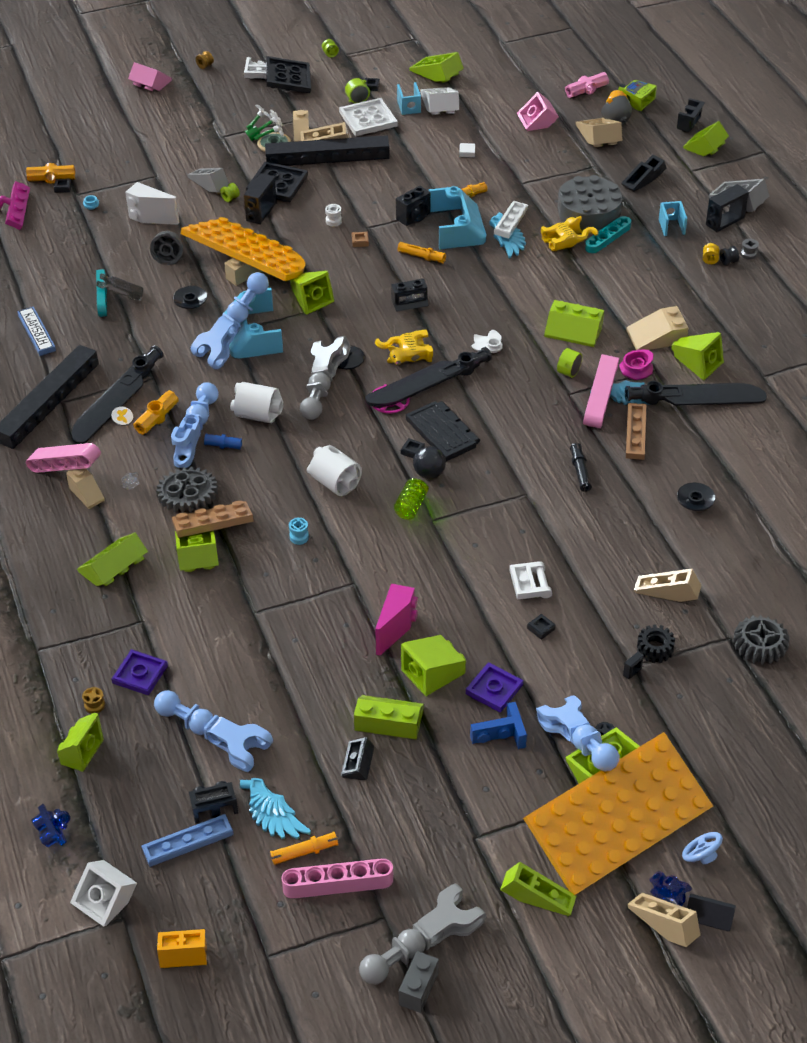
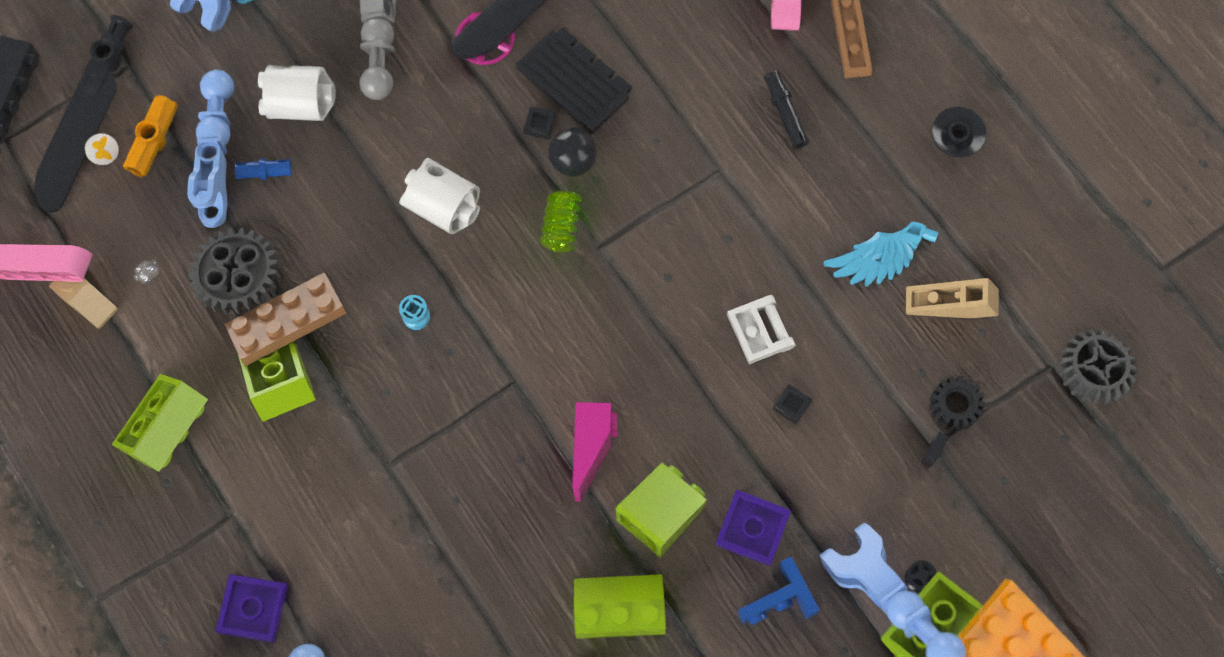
camera: 10 degrees left, 25 degrees up
(625, 555) = (881, 254): none -> medium azure animal

